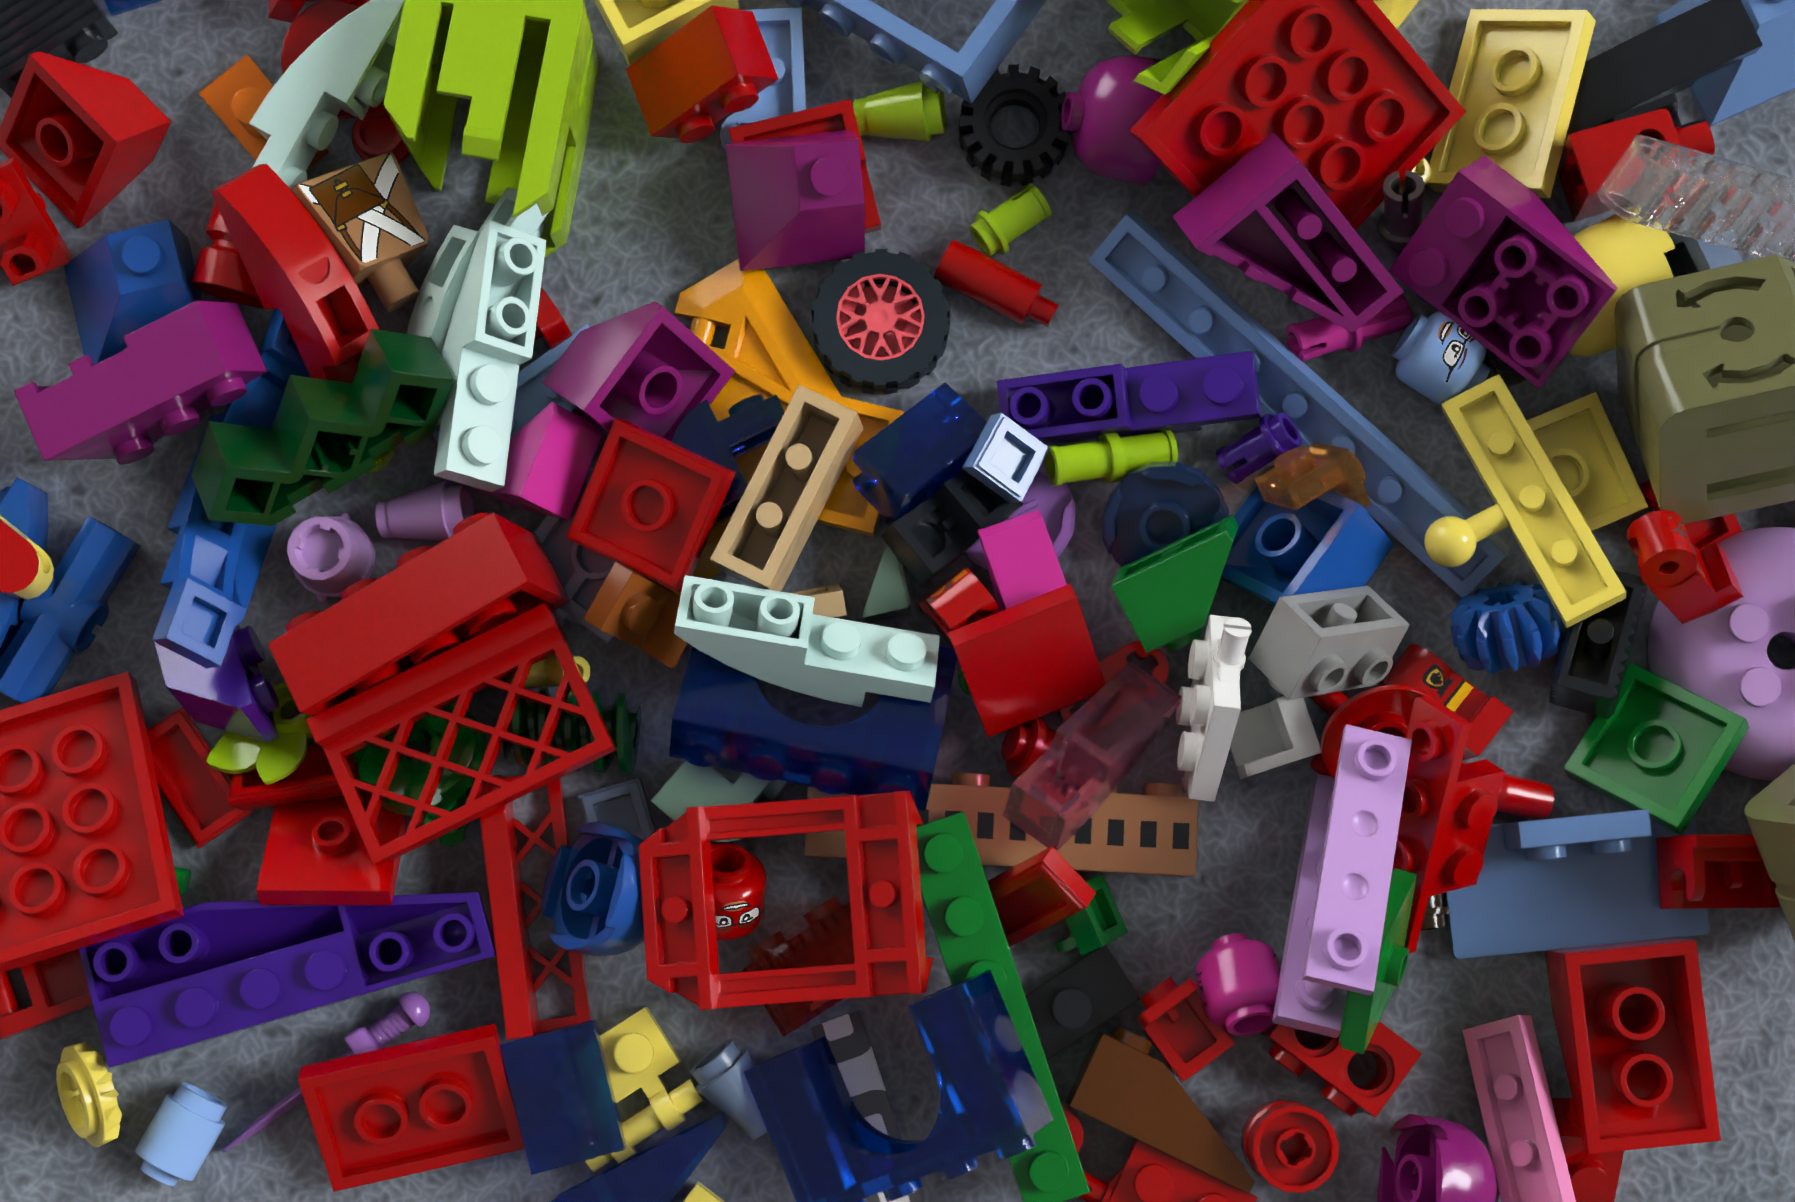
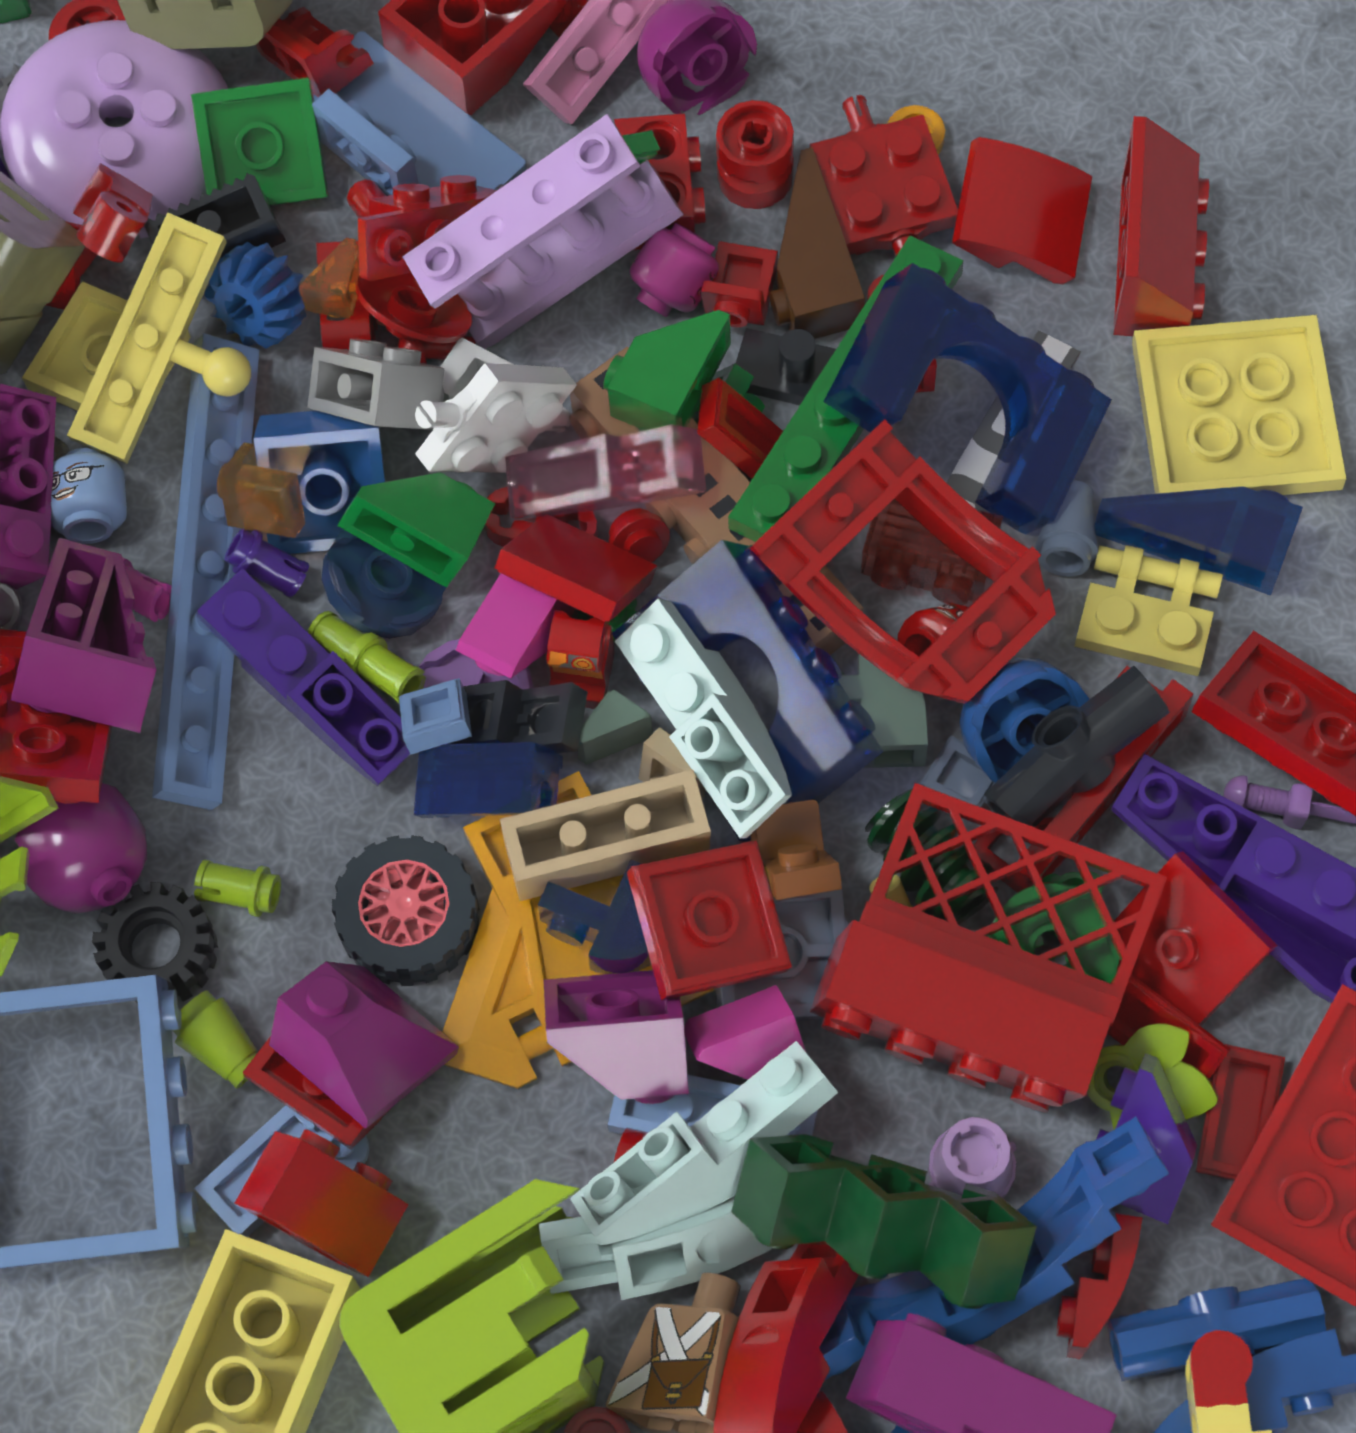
camera: 125 degrees left, 15 degrees down
(150, 541) = (1088, 1311): none -> red slope
(425, 513) = (871, 1117): lavender cone -> none
(537, 900) = (1076, 748): none -> black piece
(563, 1096) = (1192, 625): clear blue plate -> none
(993, 284) = (301, 855): red cylinder -> none
(1131, 873) = (665, 371): none -> green slope
(1451, 683) = (332, 283): none -> clear orange slope

